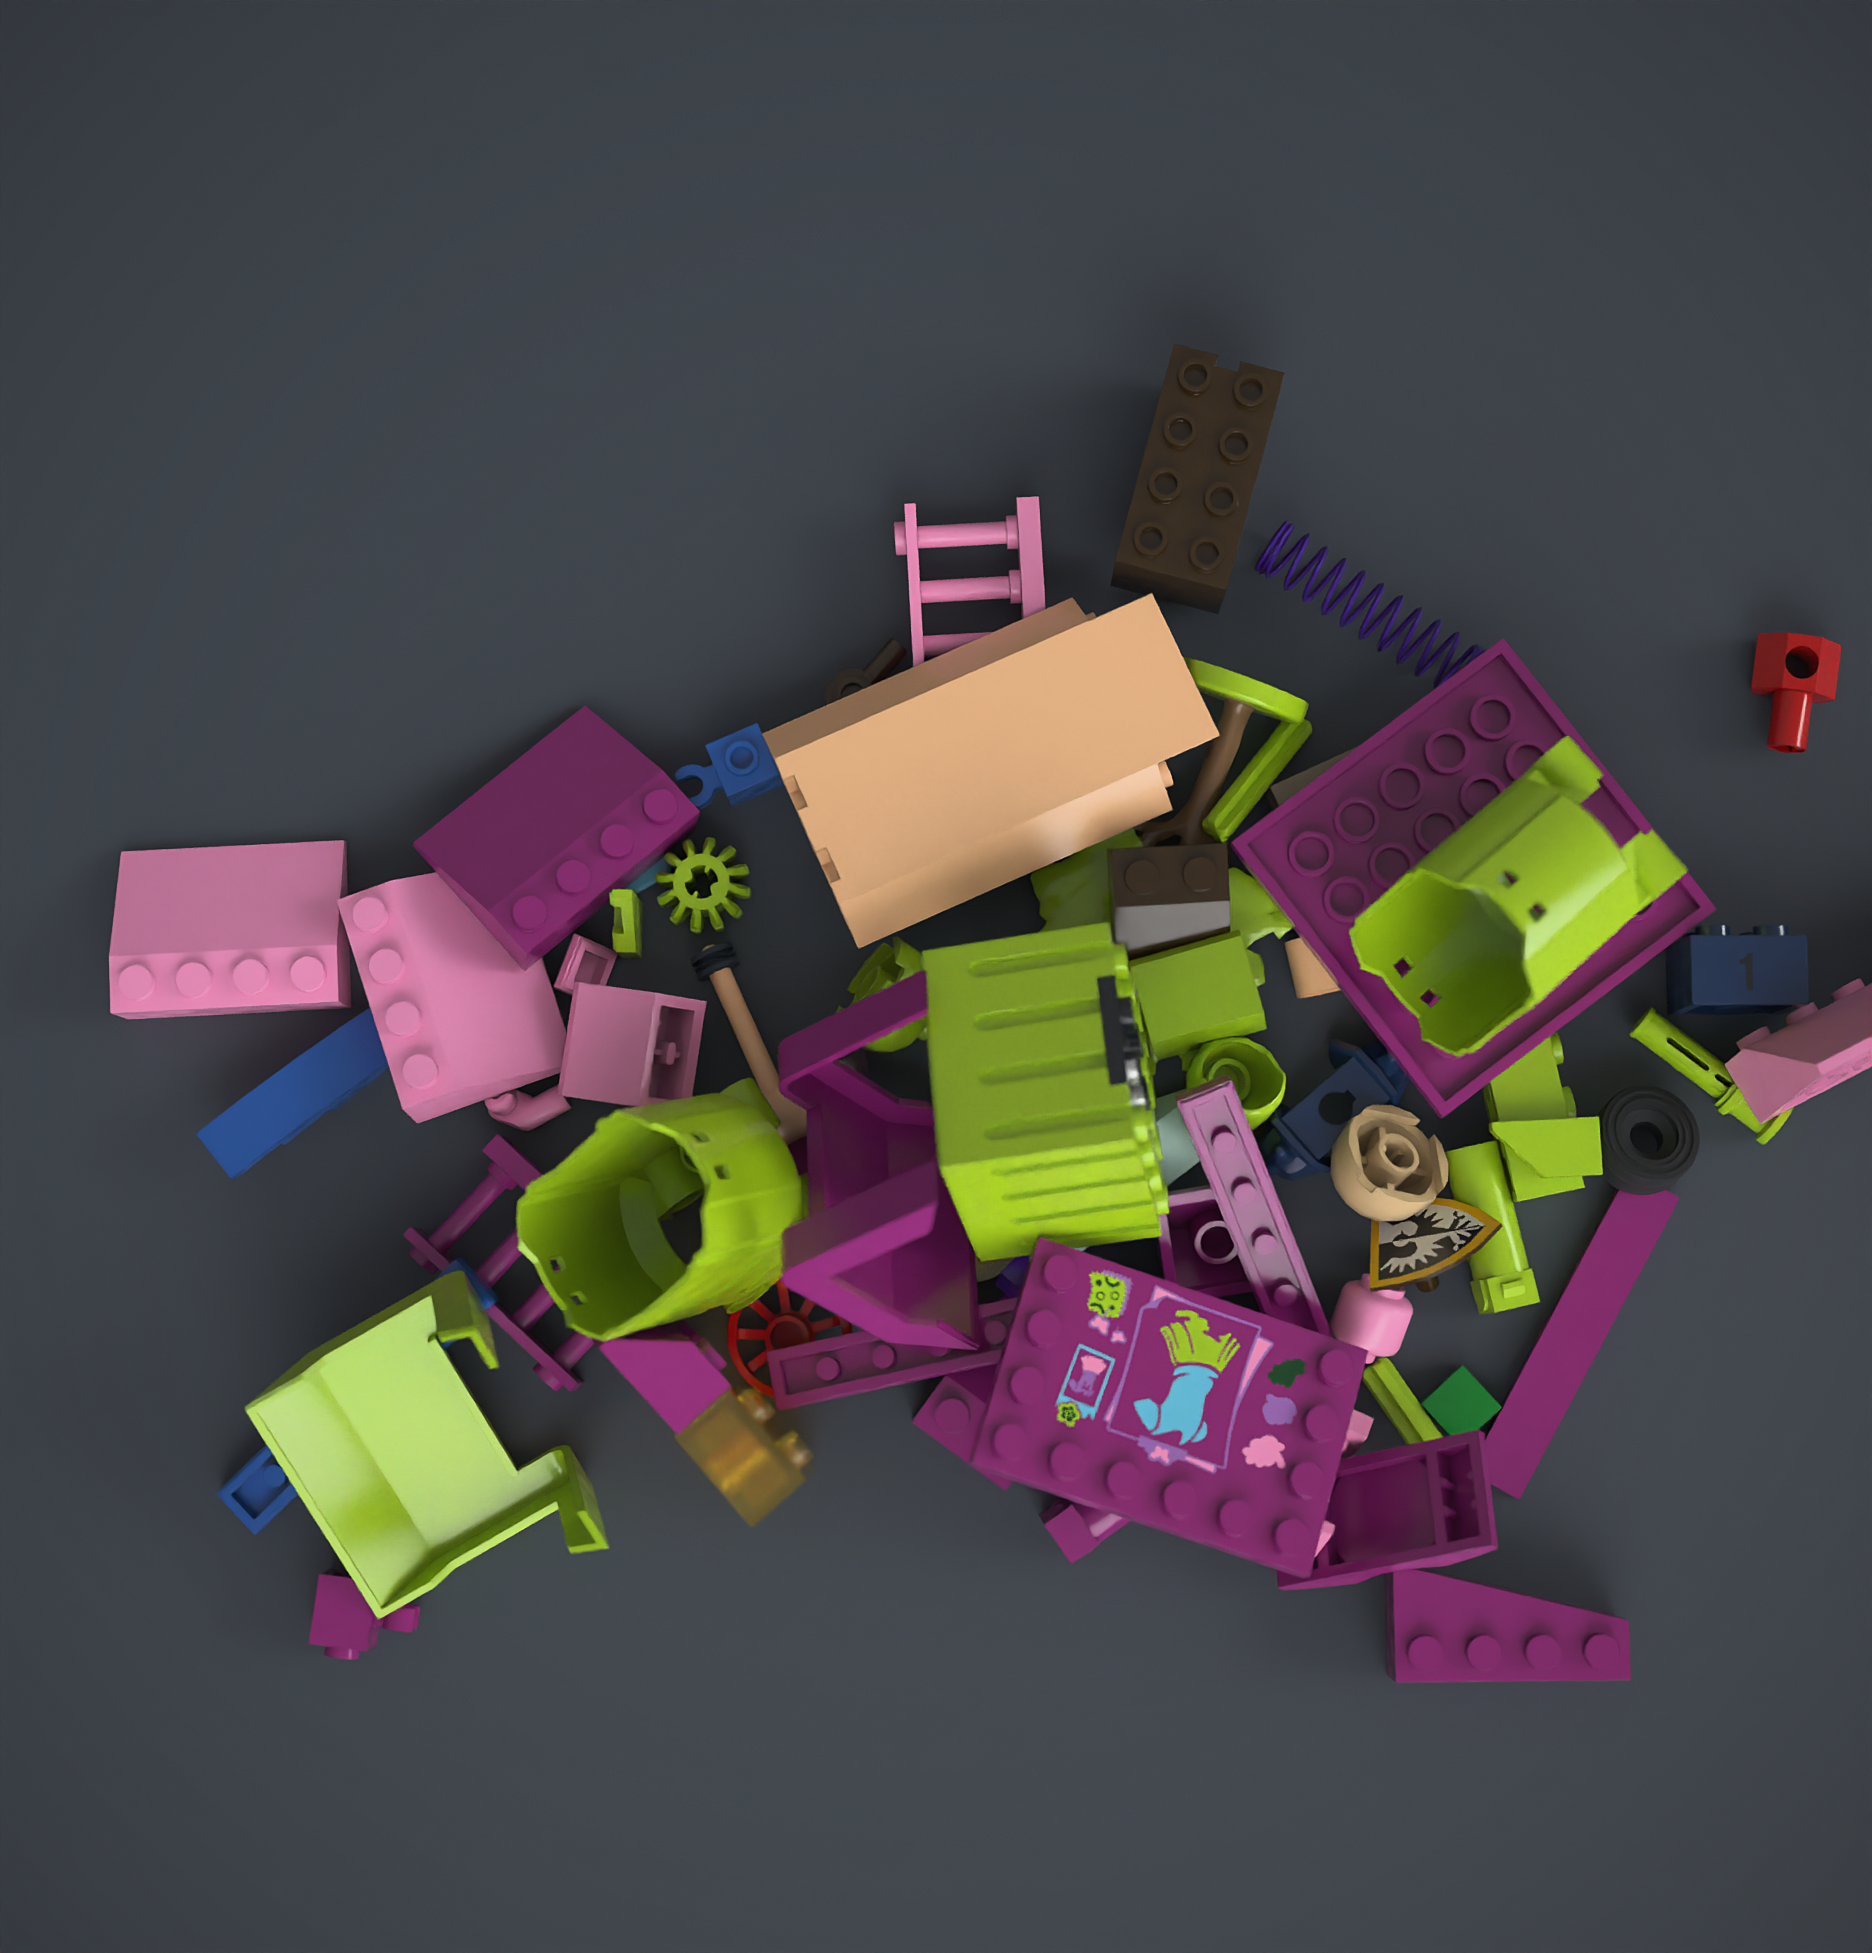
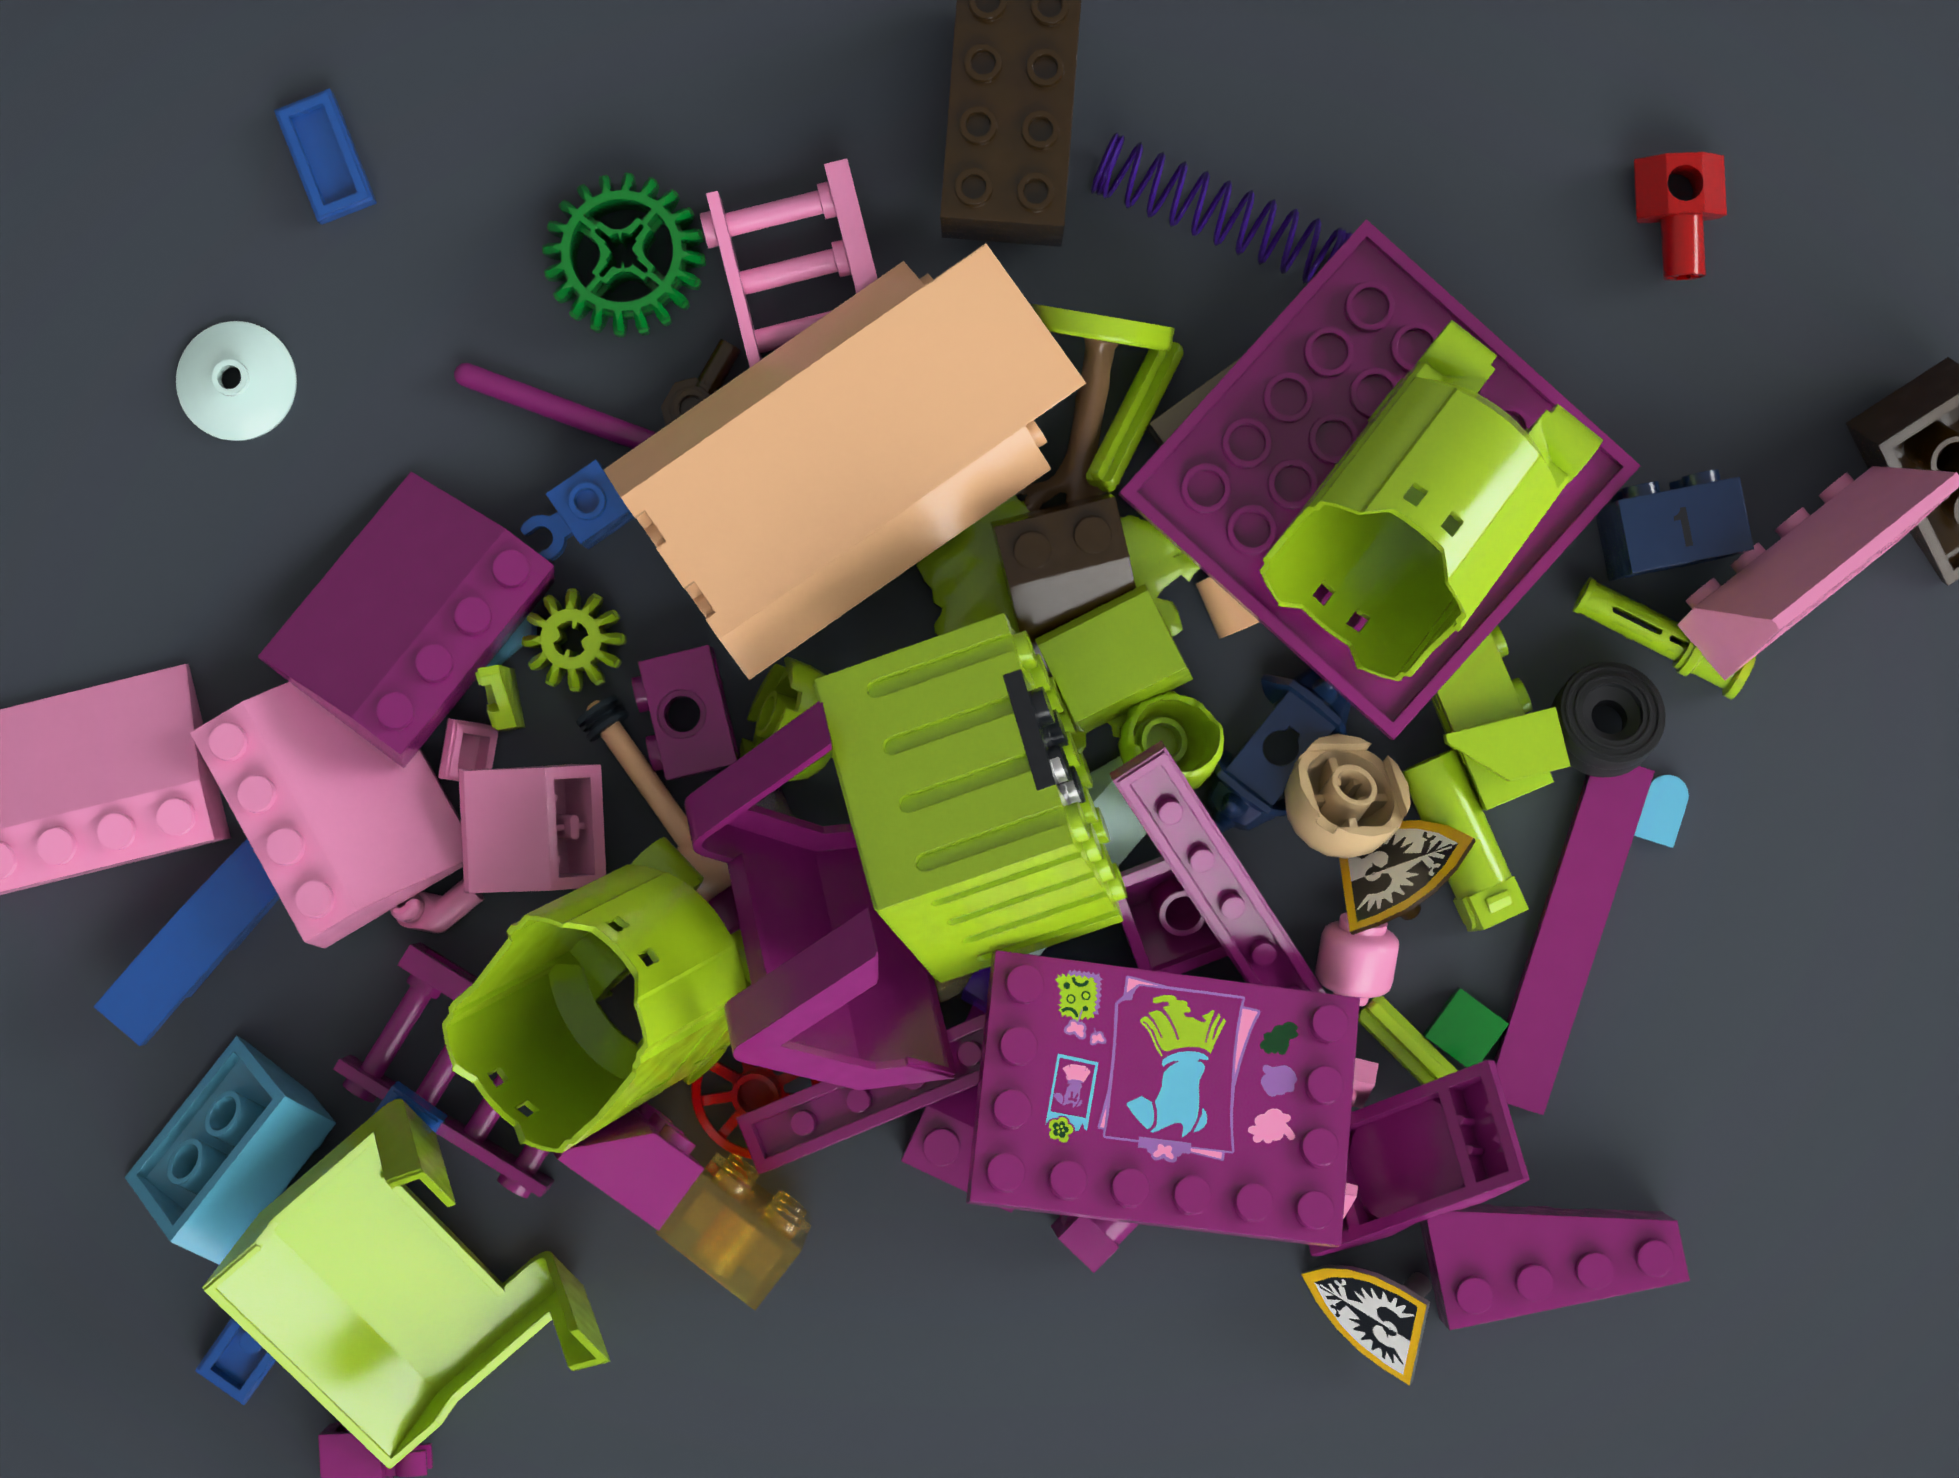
camera: 15 degrees left, 5 degrees up
(290, 1293) = (228, 1151): none -> medium azure slope
(458, 615) = (265, 385): none -> light aqua dish
(565, 409) = (325, 156): none -> blue tile
(723, 669) = (550, 405): none -> magenta piece
(799, 937) = (680, 675): none -> magenta brick
(836, 530) = (639, 233): none -> green gear
(1327, 1655) = (1375, 1313): none -> shield
(1681, 1237) = (1663, 810): none -> medium azure piece

